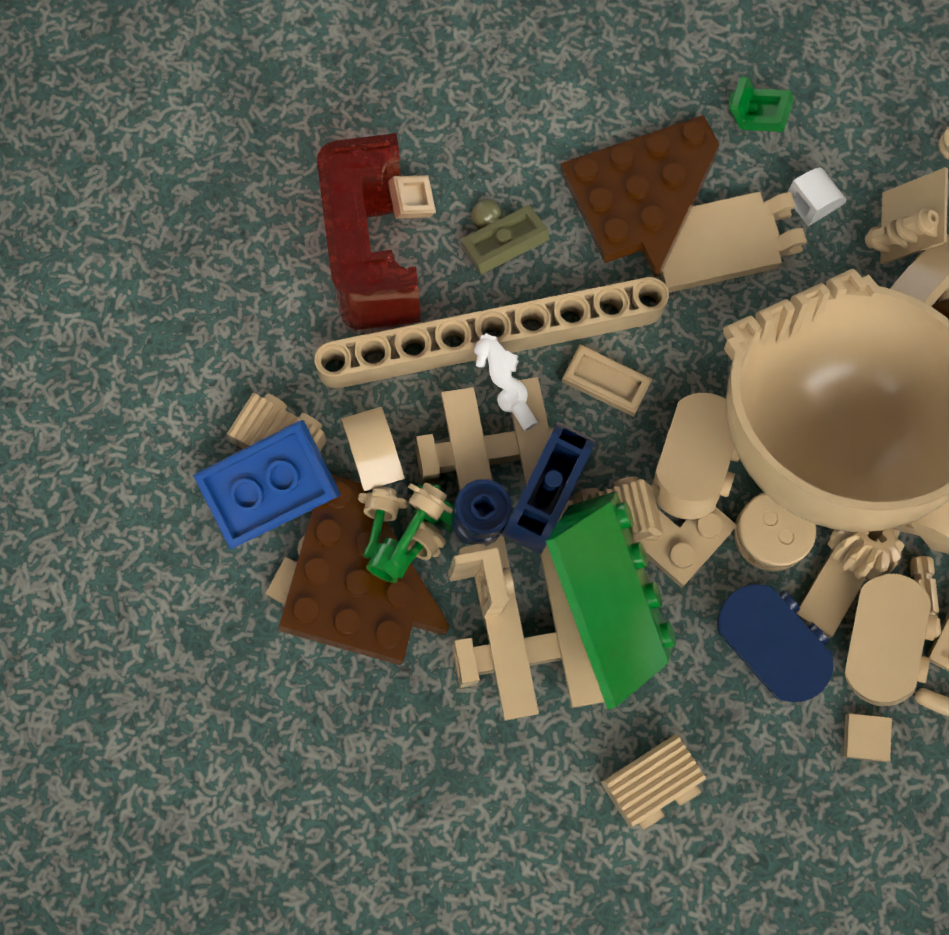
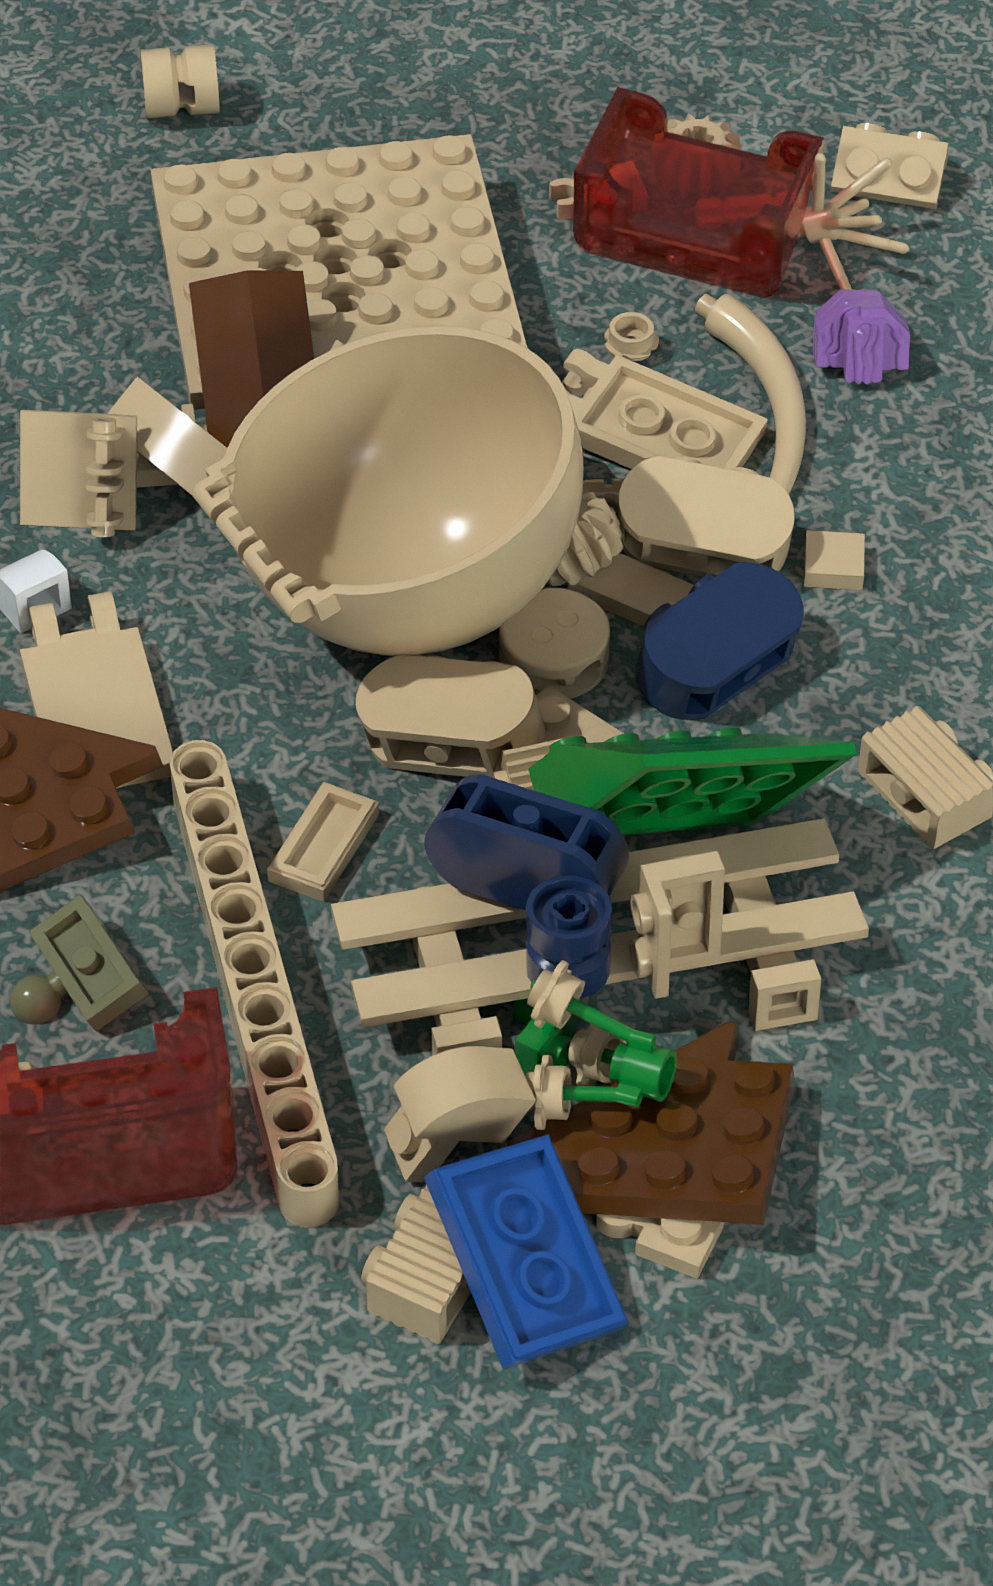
camera: 90 degrees left, 25 degrees down
(501, 366) = (322, 936): white animal -> none

